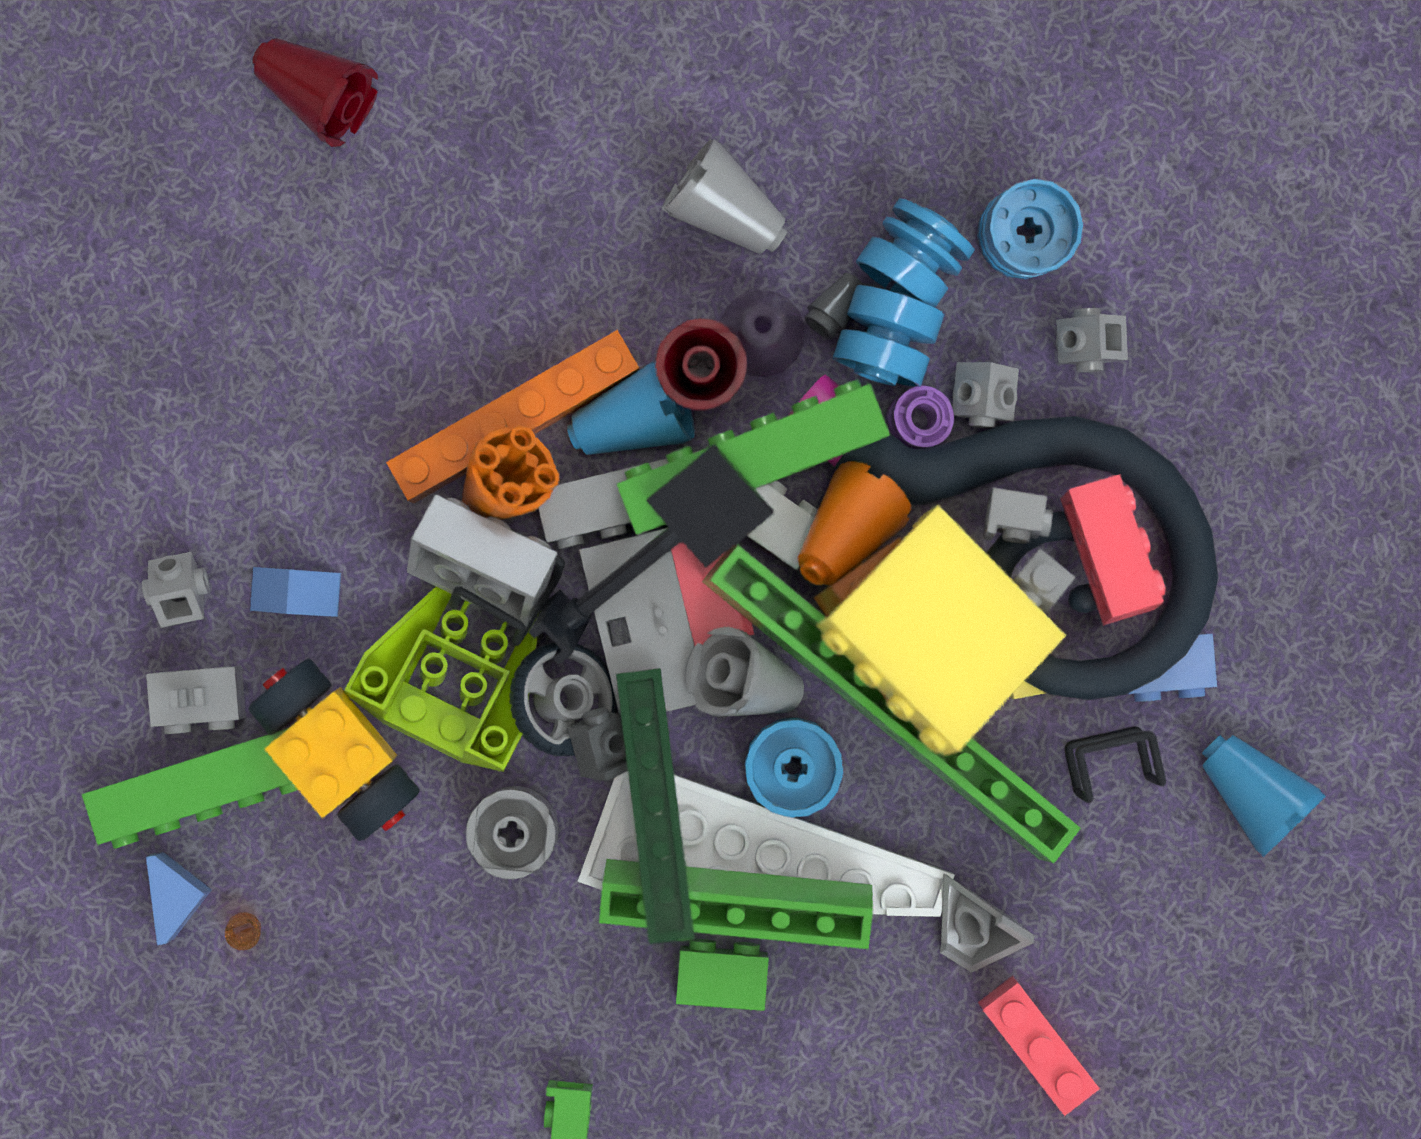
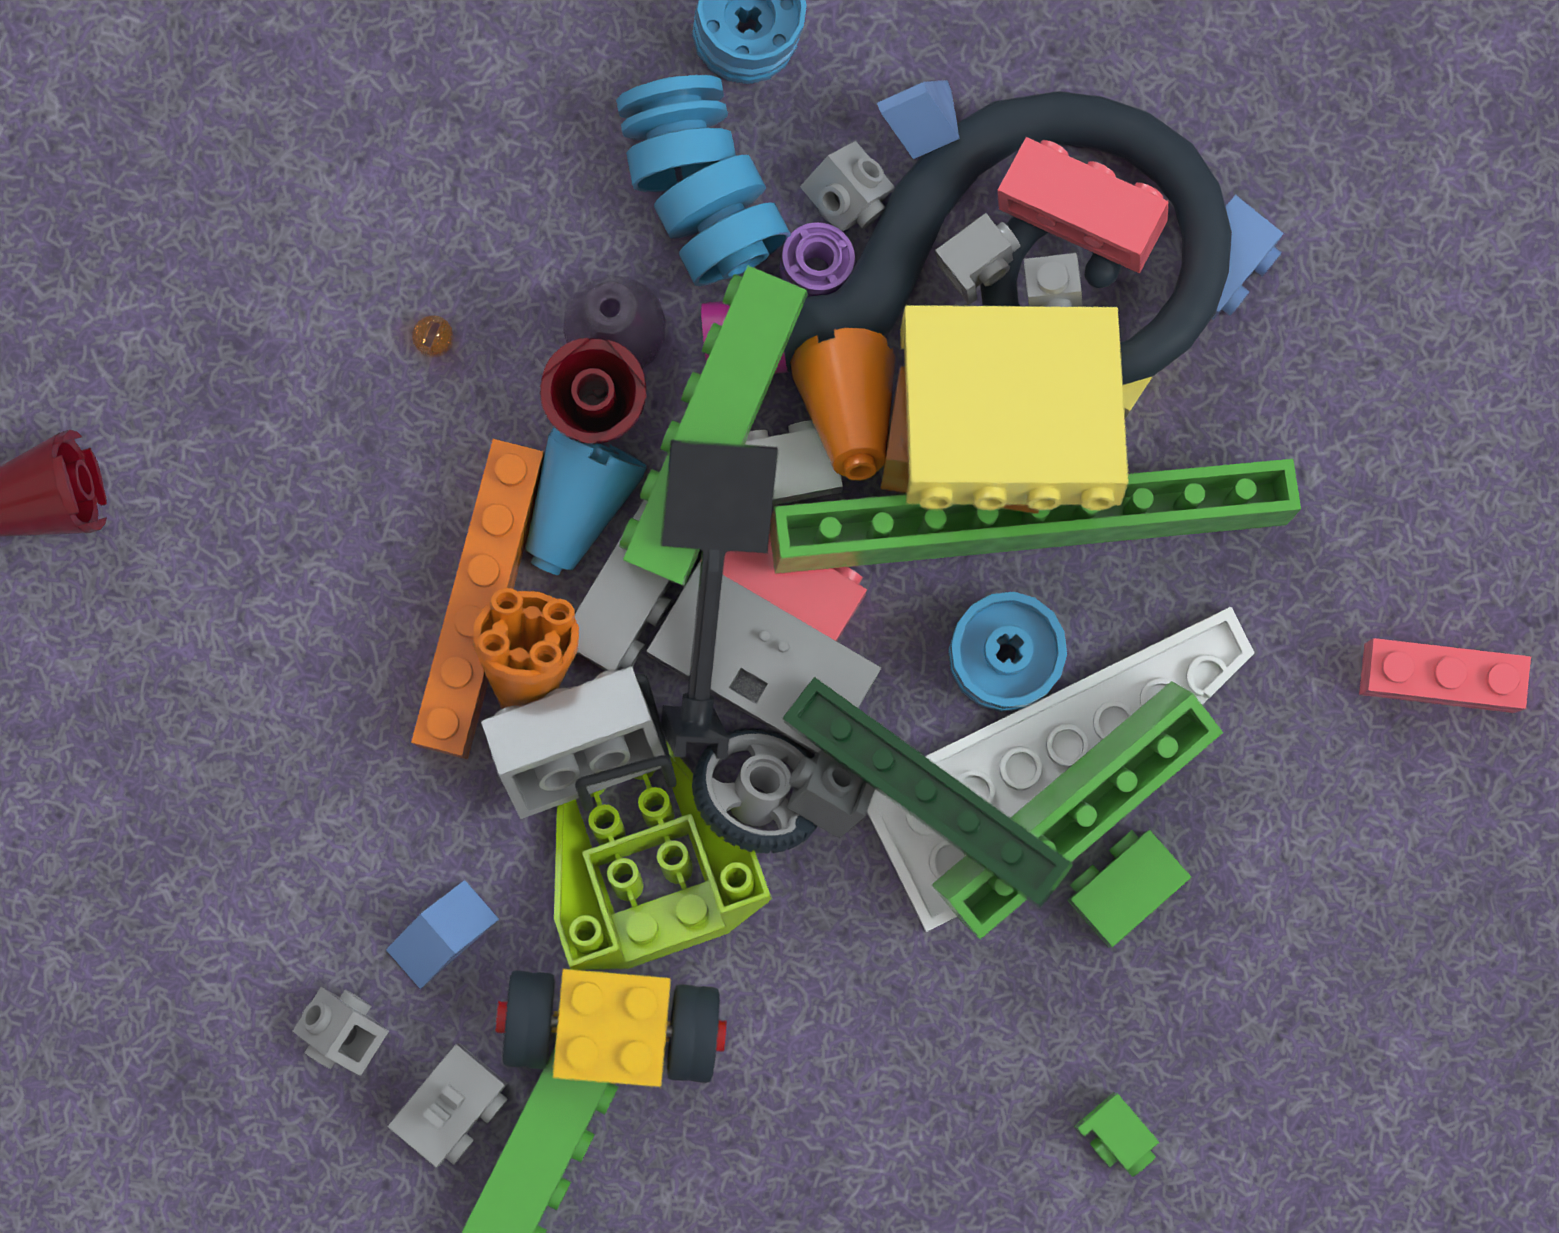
camera: 45 degrees left, 5 degrees down
(492, 847) = (861, 944): light grey brick -> none
(652, 236) = (441, 340): none -> clear orange hinge
(725, 201) = (474, 246): light grey cone -> none
(740, 677) = (886, 618): light grey cone -> none
(829, 311) = (652, 250): dark grey cone -> none
(975, 930) = (1295, 632): light grey slope -> none
(1072, 397) = (922, 117): none -> medium blue slope
(1091, 339) = (890, 57): light grey brick -> none
(1110, 740) = (1242, 364): black piece -> none
(1259, 791) = (1406, 284): dark azure cone -> none

